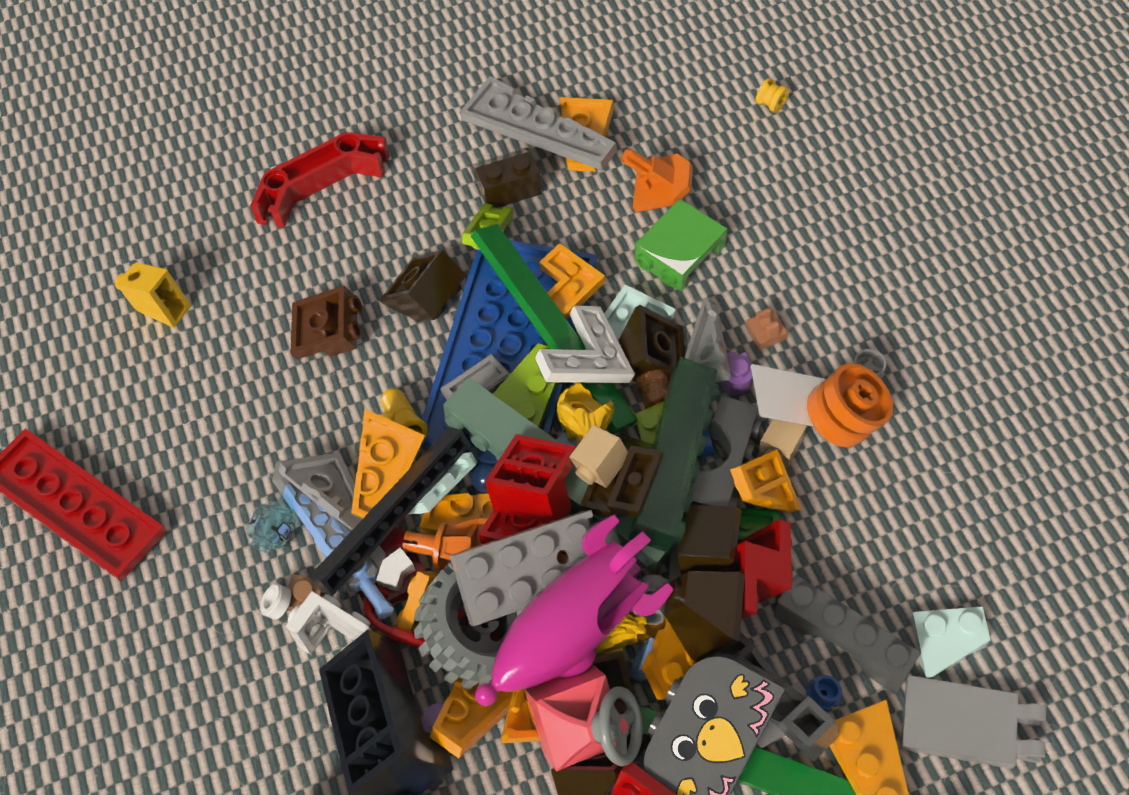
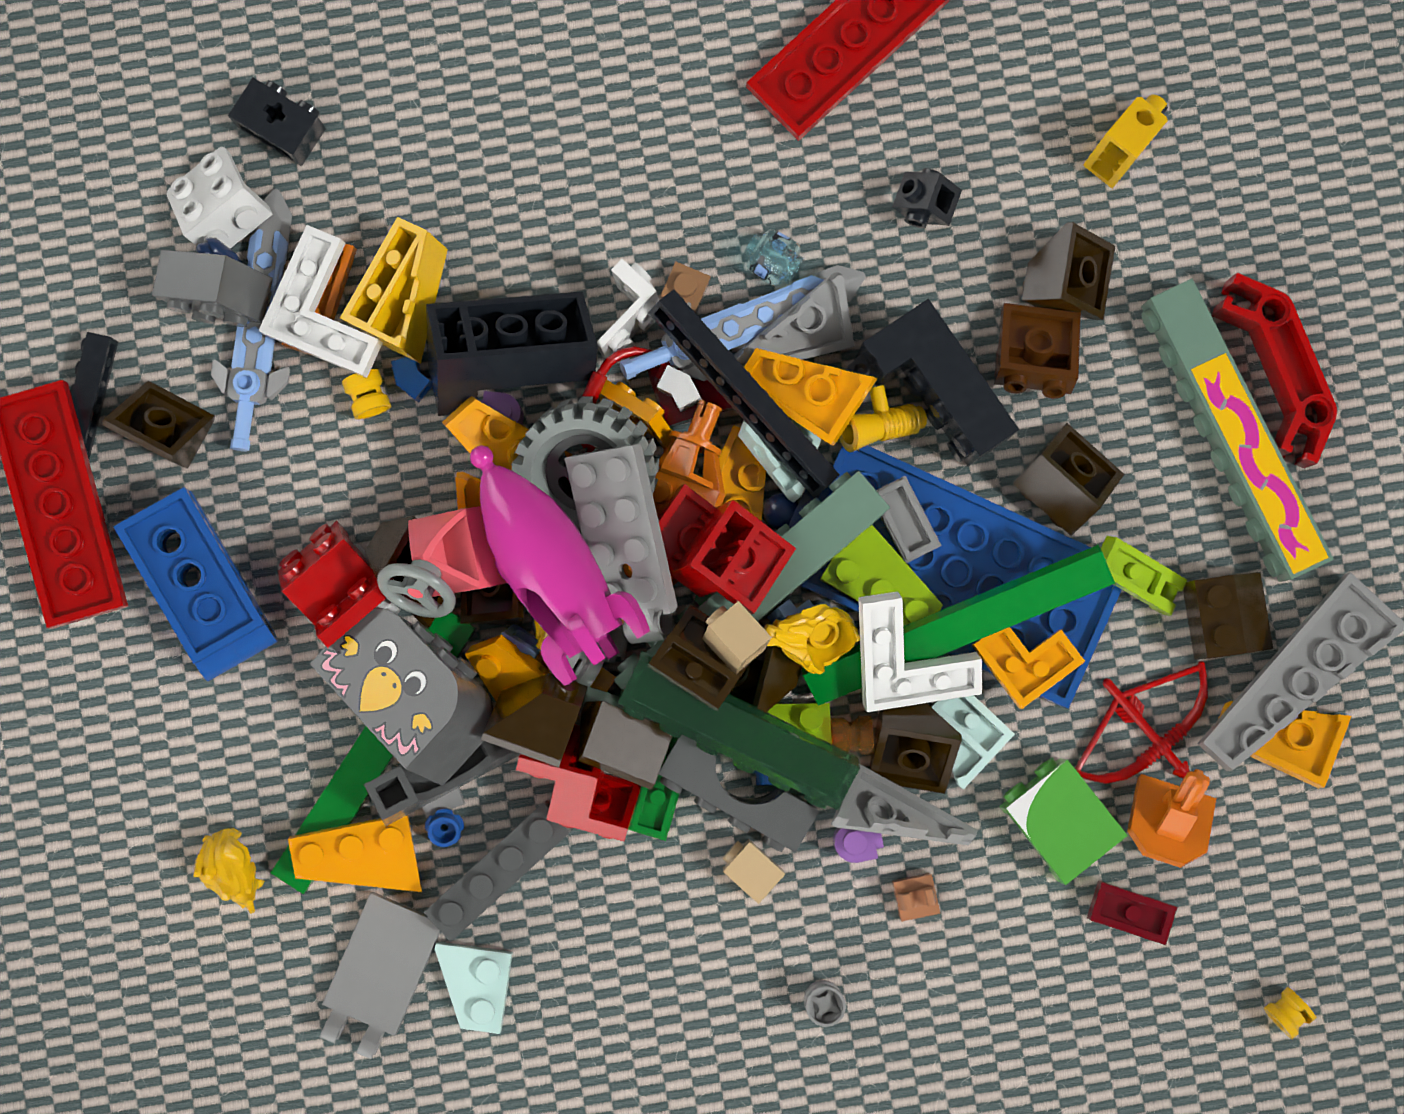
camera: 100 degrees right, 25 degrees up
(209, 419) = (926, 198): none -> black brick
(262, 315) = (1071, 273): none -> dark brown slope
(275, 601) = (680, 254): white tile -> none
(359, 375) = (942, 377): none -> black hinge
(366, 194) = (1235, 432): none -> brick
(589, 222) = (1132, 711): none -> red piece
(733, 194) = (1132, 912): none -> dark red plate
(766, 483) = (693, 831): light orange wing -> none
(783, 394) = (792, 912): white sticker -> none
(850, 405) = (769, 962): orange wheel -> none

